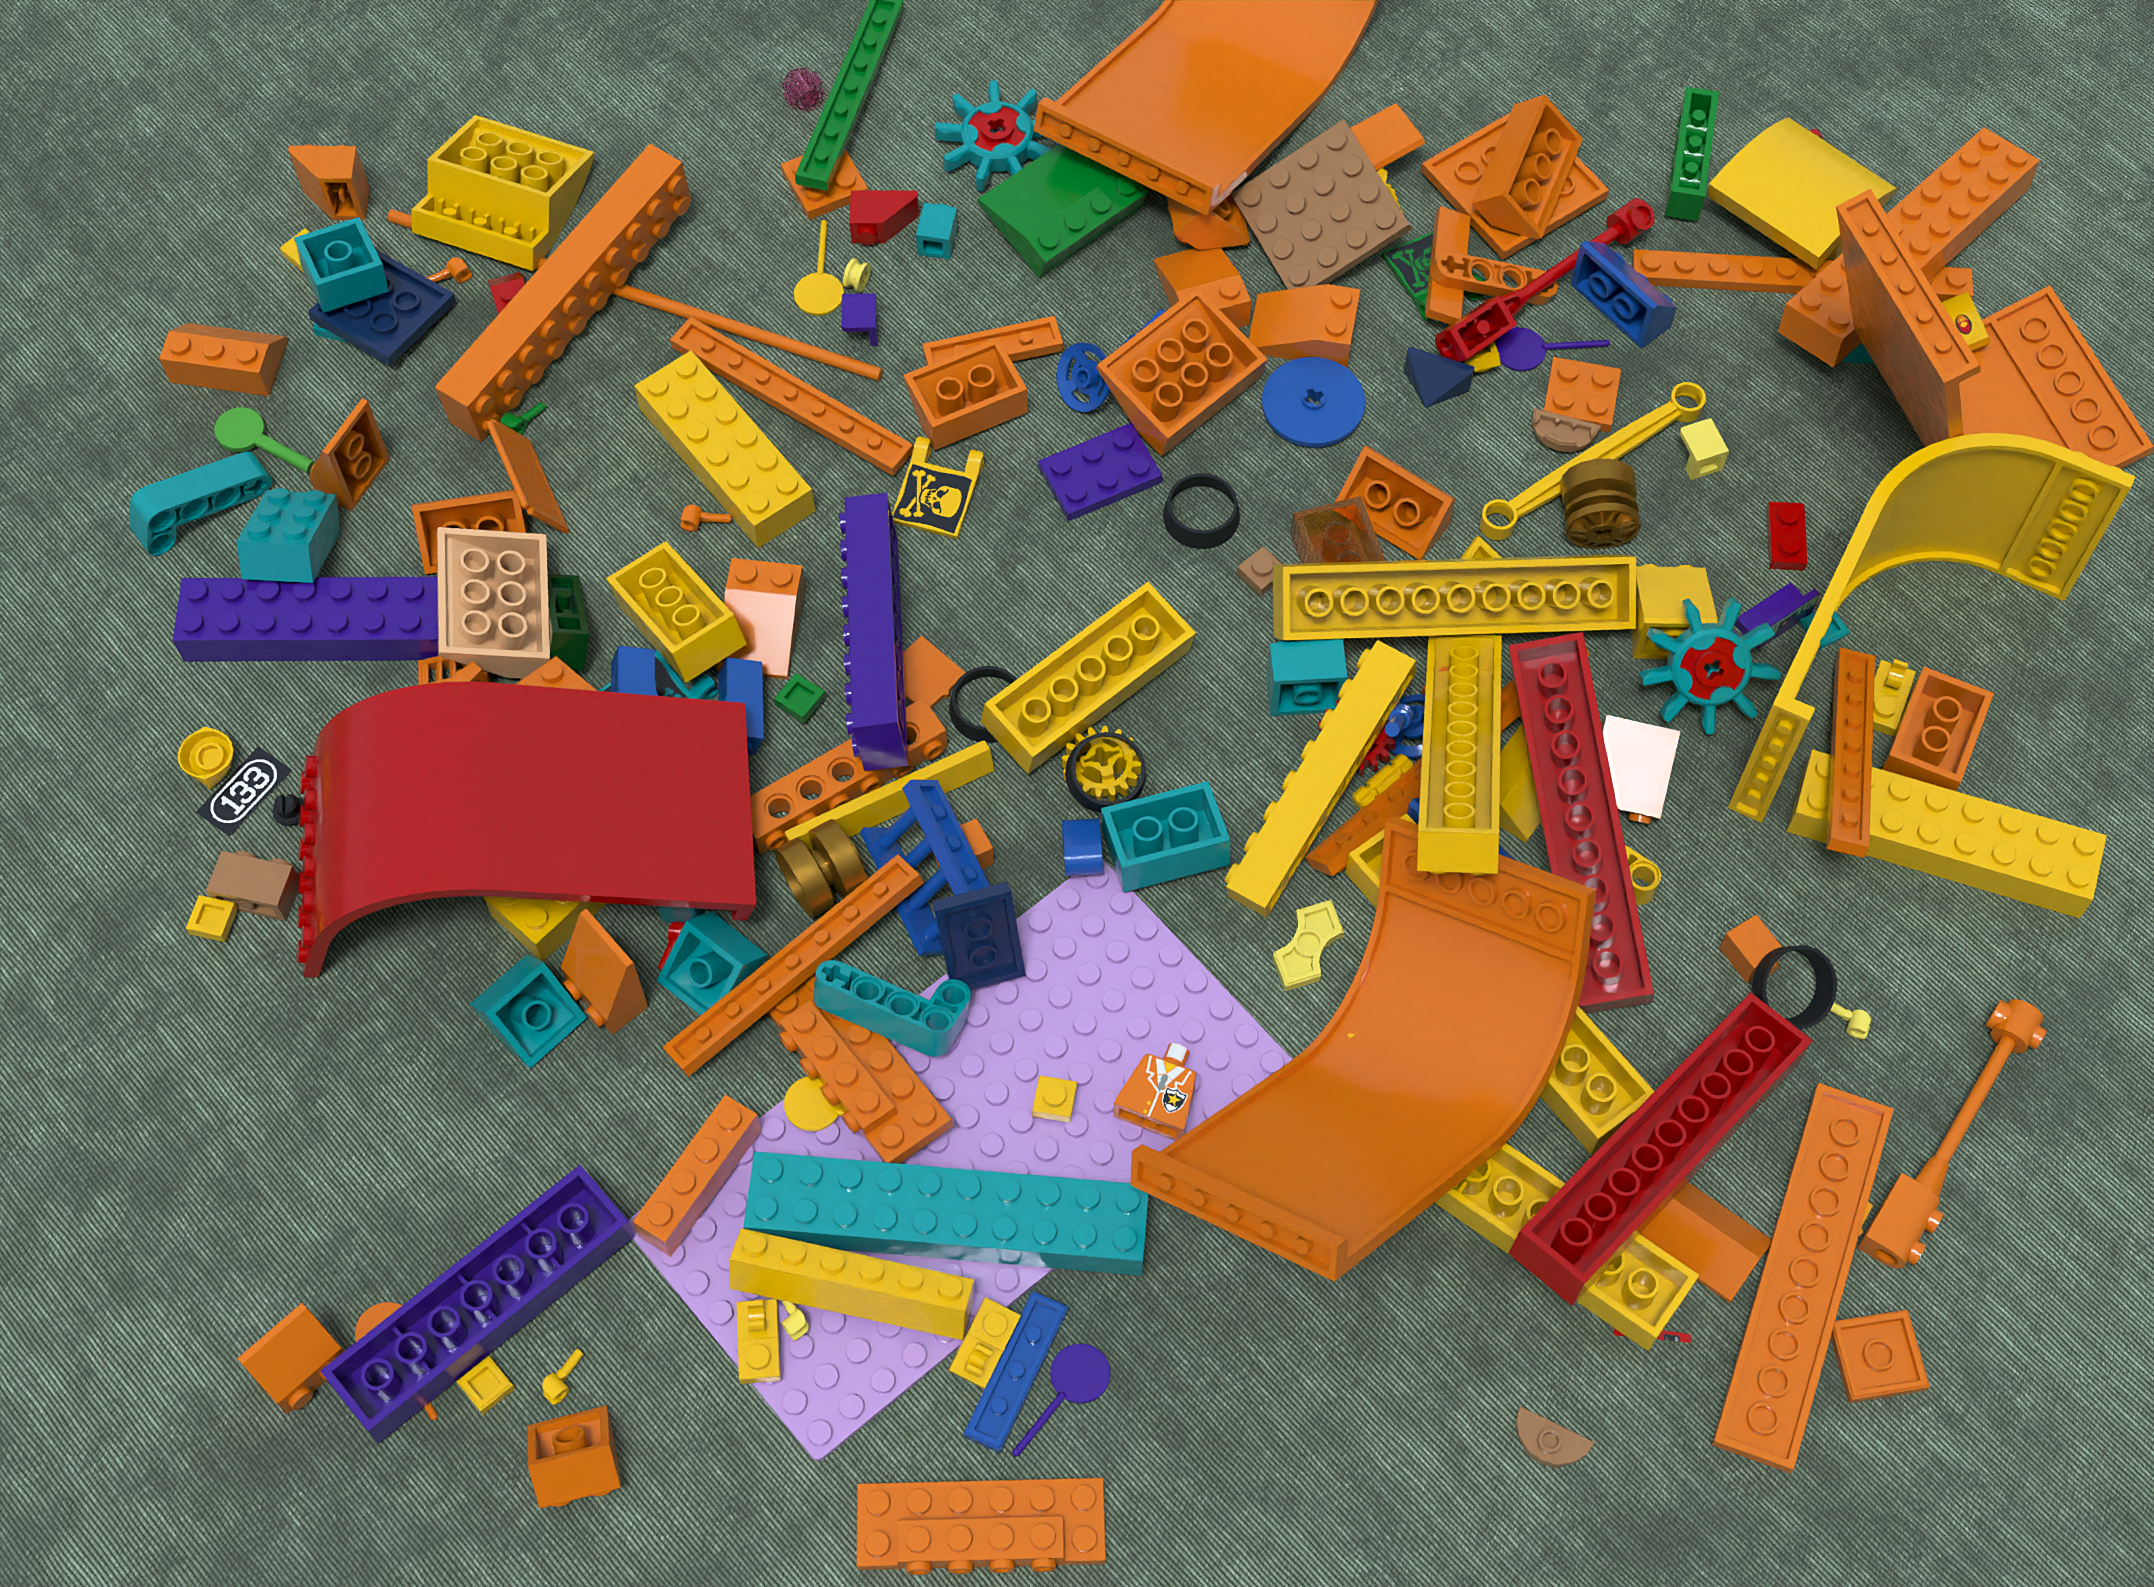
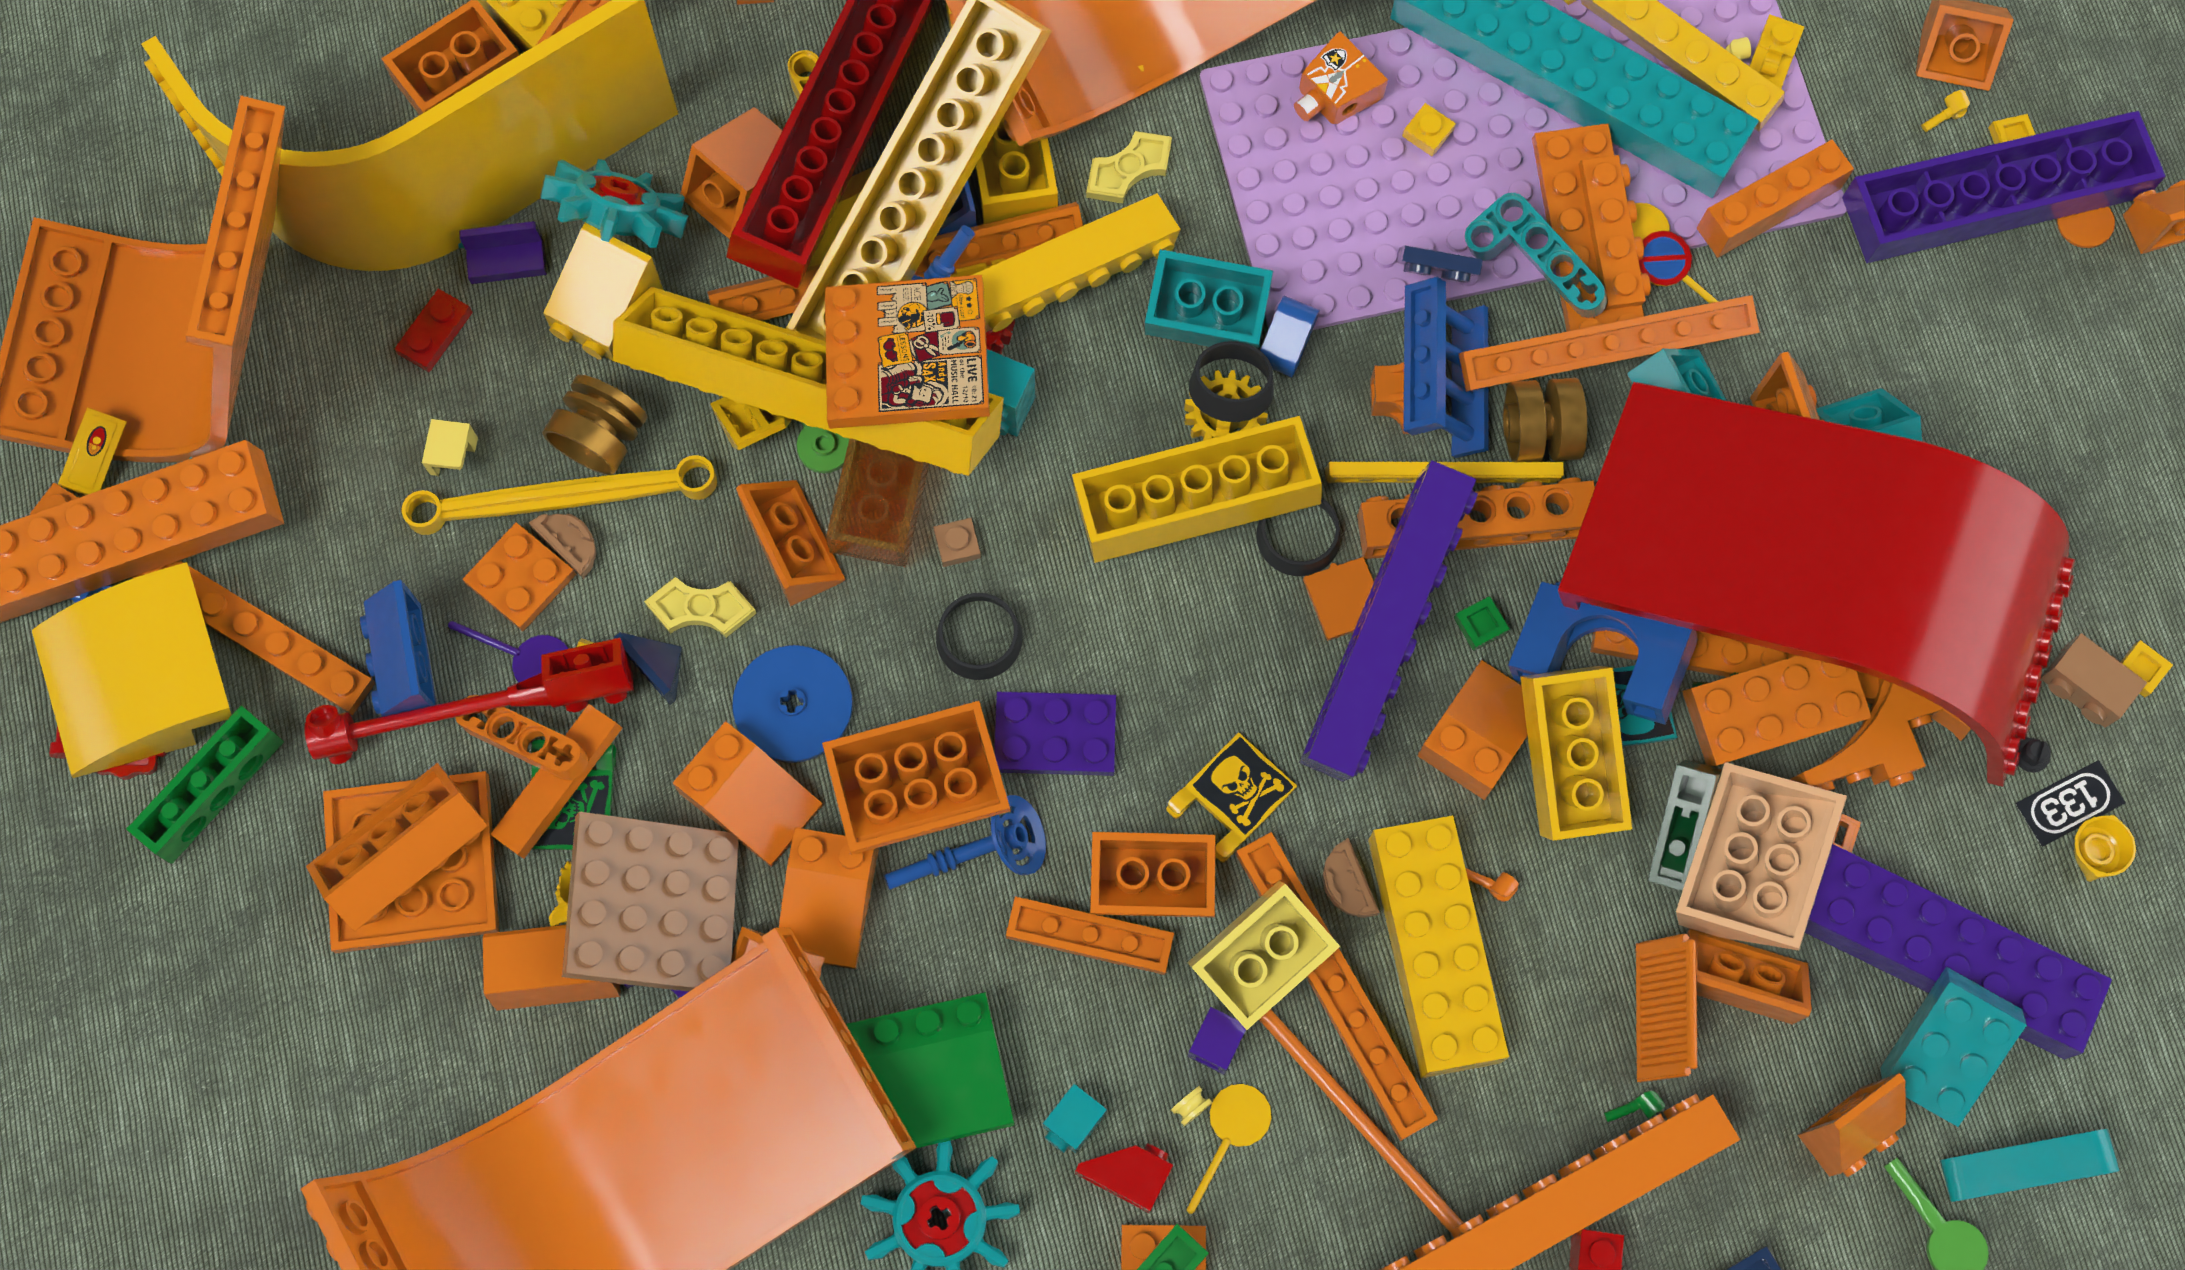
camera: 155 degrees left, 10 degrees up
(775, 1083) = (1668, 262): none -> piece
(816, 466) = (1346, 882): none -> medium nougat plate
(855, 368) = (1263, 954): none -> light yellow slope
(1380, 618) = (906, 352): none -> plate
(1416, 440) = (717, 608): none -> light yellow tile

